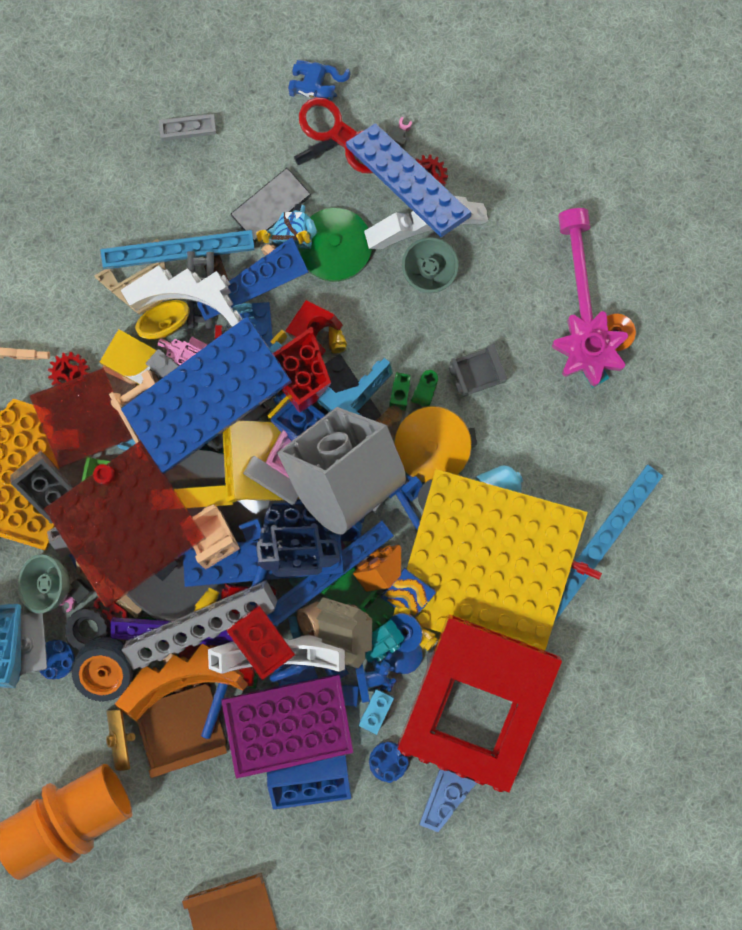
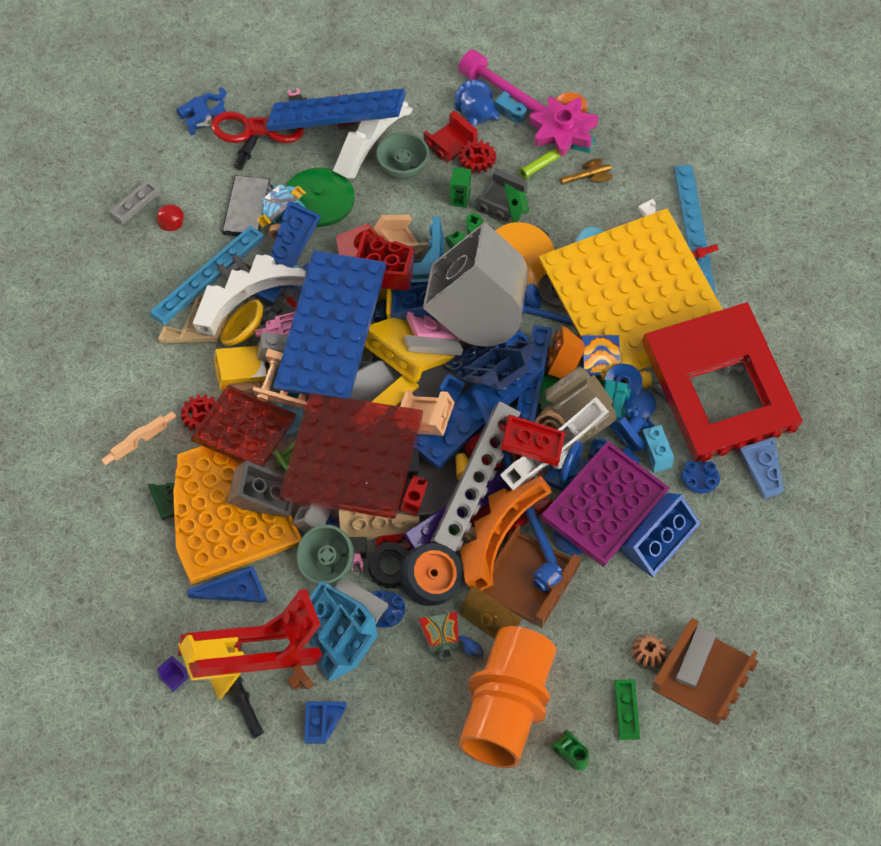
camera: 40 degrees left, 25 degrees down
(72, 718) = (440, 634): none -> torso
(78, 890) = (569, 747): none -> green piece
(85, 748) = (471, 646): none -> blue animal
(104, 474) = (305, 431): red tile -> none
(148, 594) = (414, 495): none -> red leg
(151, 897) = (626, 710): none -> green tile
(188, 745) = (547, 577): none -> blue head
(200, 866) = (648, 643): none -> nougat gear
(203, 165) = (170, 217): none -> red hair
(237, 905) = (696, 657): none -> light grey tile
(356, 343) = (396, 229): none -> light nougat panel
(448, 336) = (460, 187): none -> green brick
(479, 392) = (517, 202): none -> green piece
(490, 278) = (451, 137): none -> red panel
(502, 313) = (477, 156): none -> red gear
(539, 365) = (538, 164): none -> lime pin
(541, 262) = (476, 102): none -> blue hair
(565, 290) = (510, 109): none -> dark azure leg
(579, 412) = (595, 170): none -> pearl gold piece
(586, 485) = (647, 208): none -> white tile

